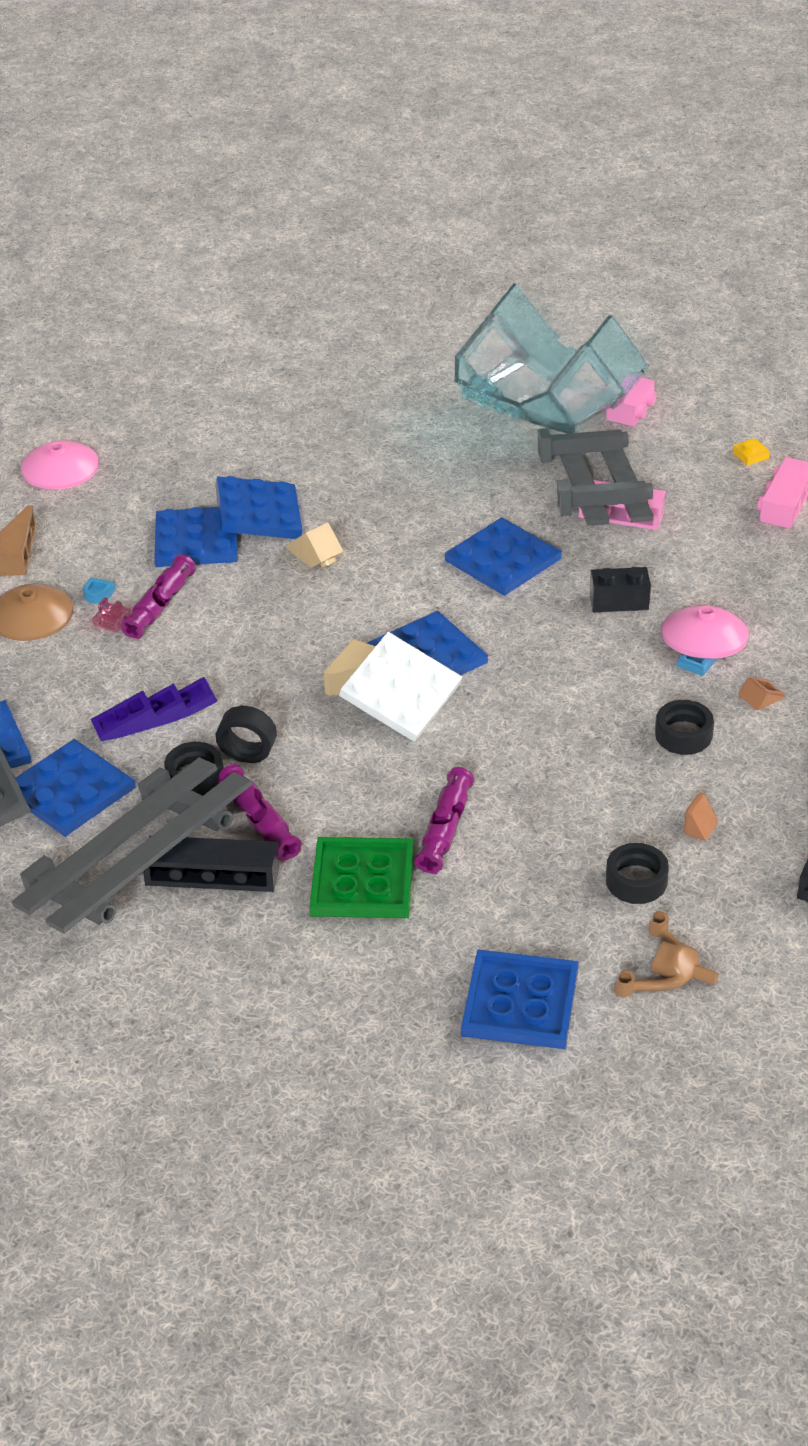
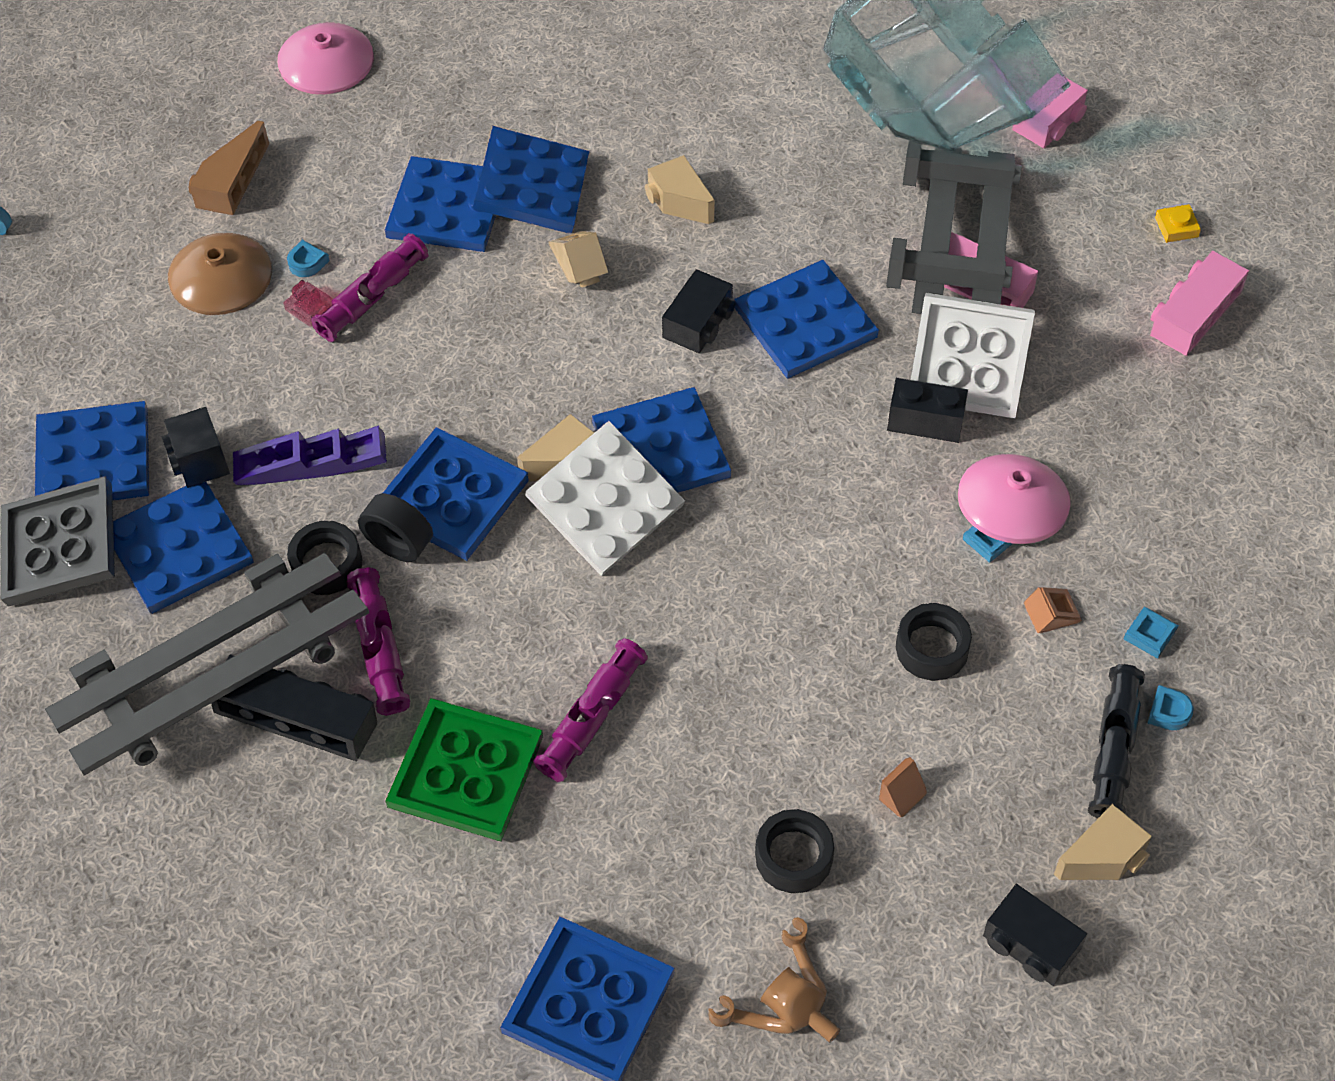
camera: 15 degrees right, 15 degrees up
(63, 717) = (194, 447): none -> black brick
(290, 702) = (457, 490): none -> blue plate
(377, 495) = (680, 191): none -> tan slope
(421, 564) = (698, 311): none -> black brick
(643, 537) = (974, 349): none -> white plate

